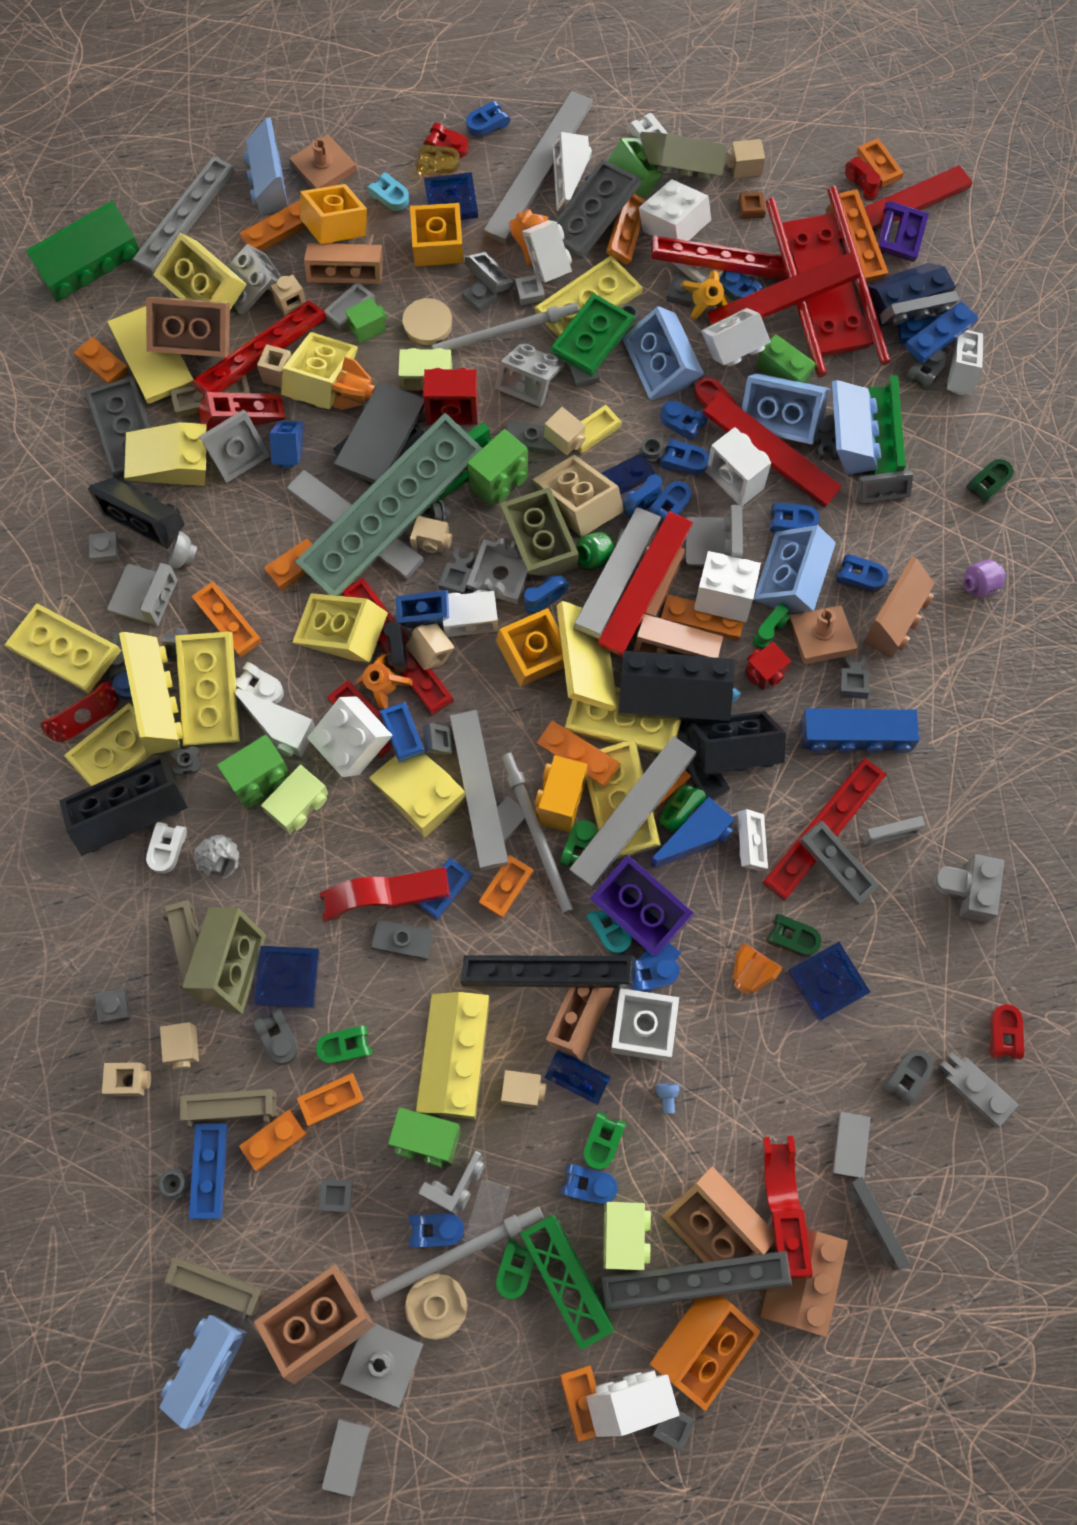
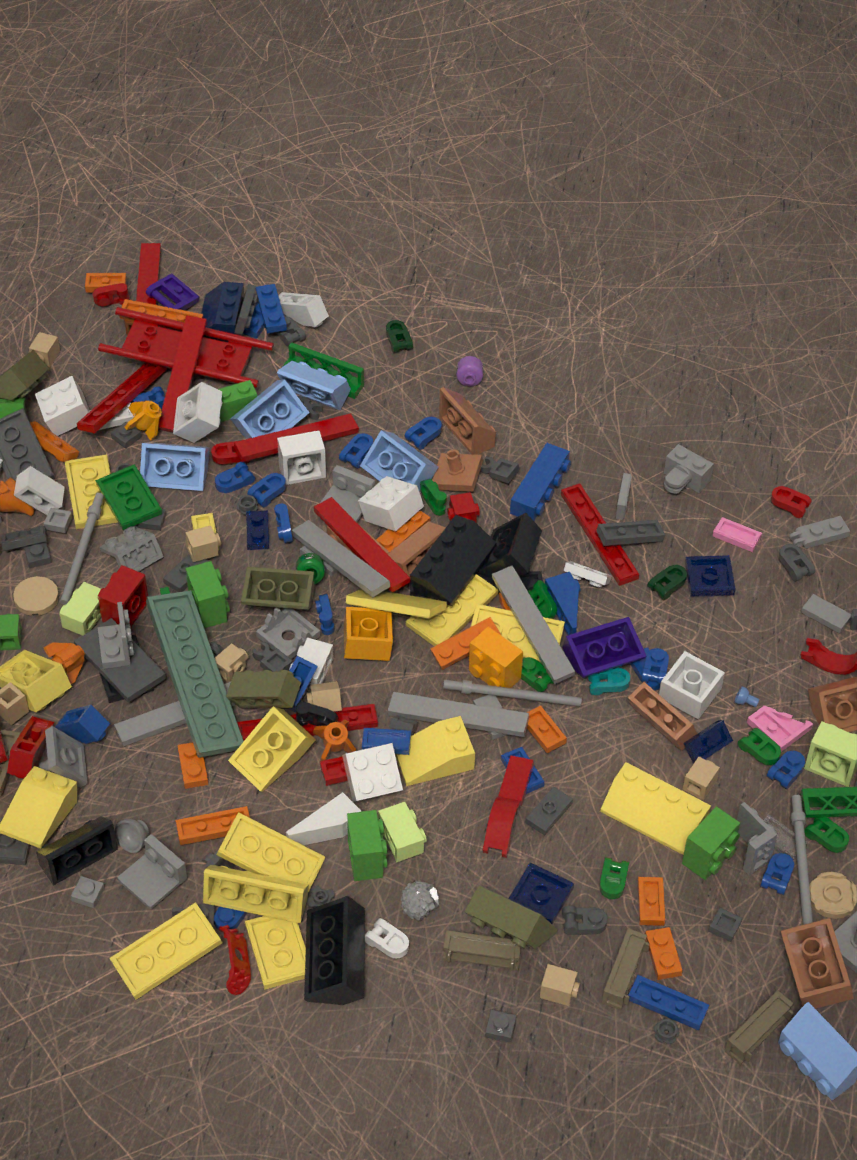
camera: 65 degrees left, 20 degrees down
(116, 1075) = (568, 1032): tan brick -> none
(266, 687) = (286, 821): white plate -> none
(390, 416) = (115, 641): none -> light grey bracket
(392, 580) = (263, 689): none -> olive brick
(548, 971) = (624, 722): black tile -> none
(581, 494) = (263, 550): tan slope -> none
(642, 1152) = (779, 726): none -> bright pink wing
(675, 495) = (298, 506): blue plate -> none
(752, 205) = (83, 366): dark orange tile -> none
(753, 970) = (682, 610): orange brick -> none
(885, 486) = (367, 390): dark grey plate -> none
(916, 988) = (737, 534): none -> bright pink tile

